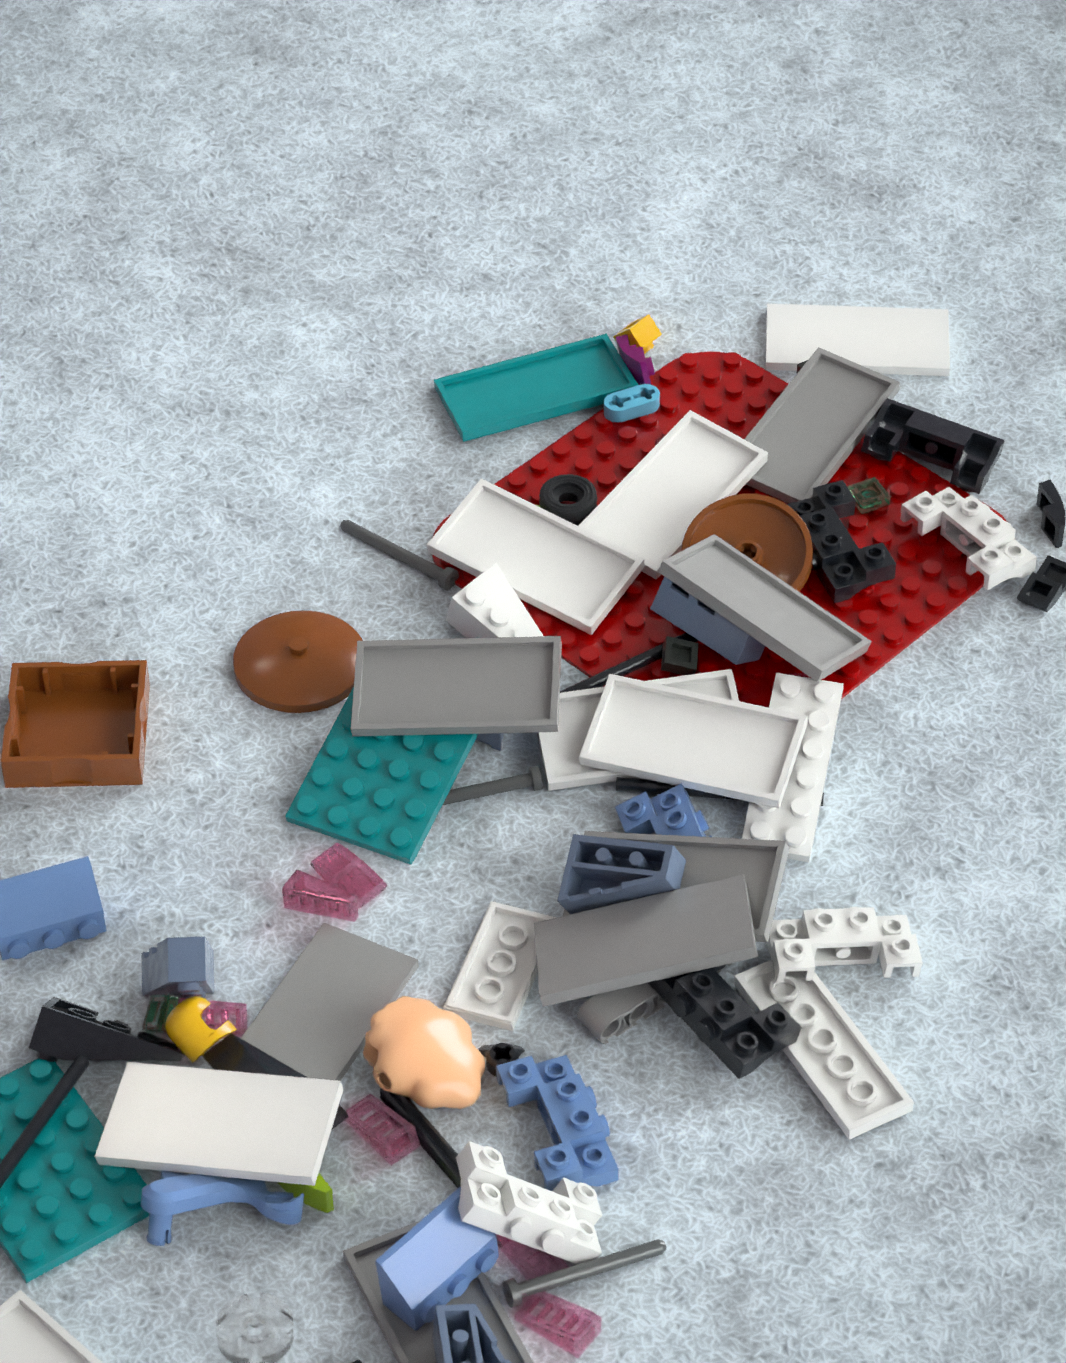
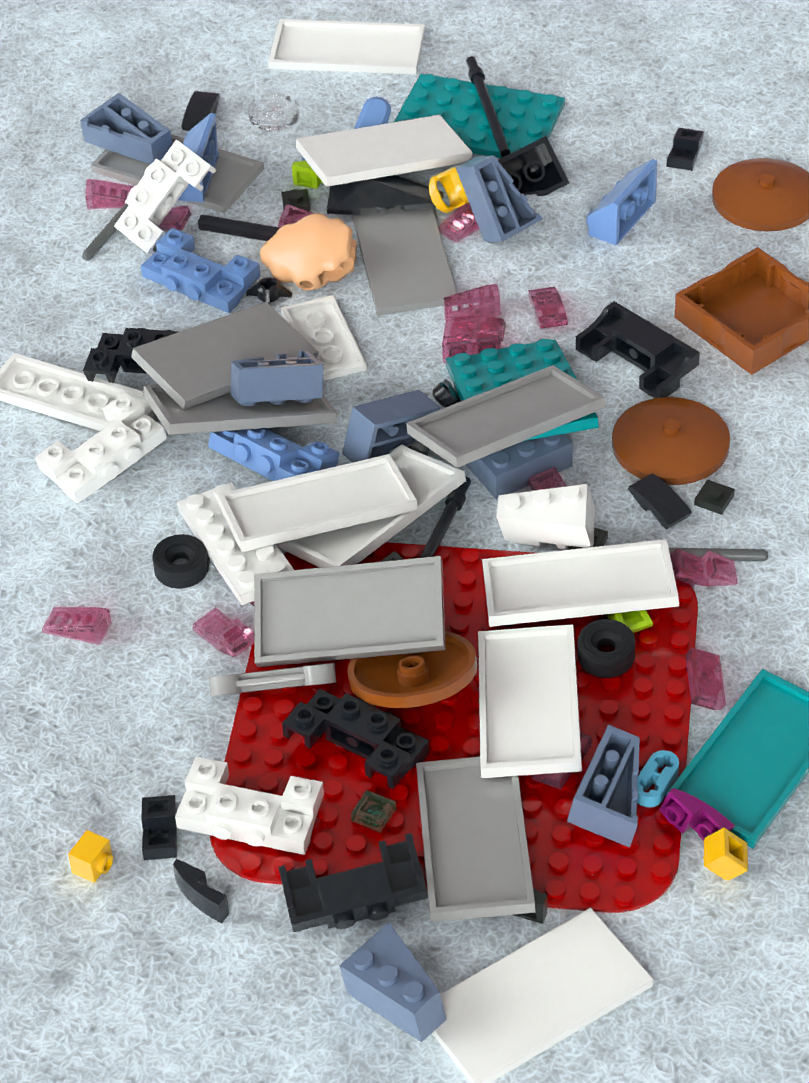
camera: 145 degrees right, 0 degrees up
(217, 734) = (643, 345): none -> black bracket
(249, 856) = (548, 307): none -> clear pink slope
(325, 591) = (714, 497): none -> pearl dark grey plate
(359, 1171) = (296, 198): none -> pearl dark grey plate
(373, 846) = (479, 341): none -> clear pink slope
(376, 610) = (661, 499): none -> black slope
(408, 533) = (704, 571): none -> clear pink slope
(451, 815) = (446, 394): none -> black piece
(510, 455) = (705, 679): none -> clear pink plate
(543, 800) = (382, 424): none -> sand blue wedge
(688, 387) = (609, 789): none -> sand blue wedge
(854, 776) = (175, 548): none -> black tyre
(866, 707) = (223, 634): none -> clear pink slope
(870, 629) = (272, 679): none -> light grey piece
(960, 373) = (394, 984): none -> sand blue wedge
(983, 772) = (85, 632): none -> clear pink slope

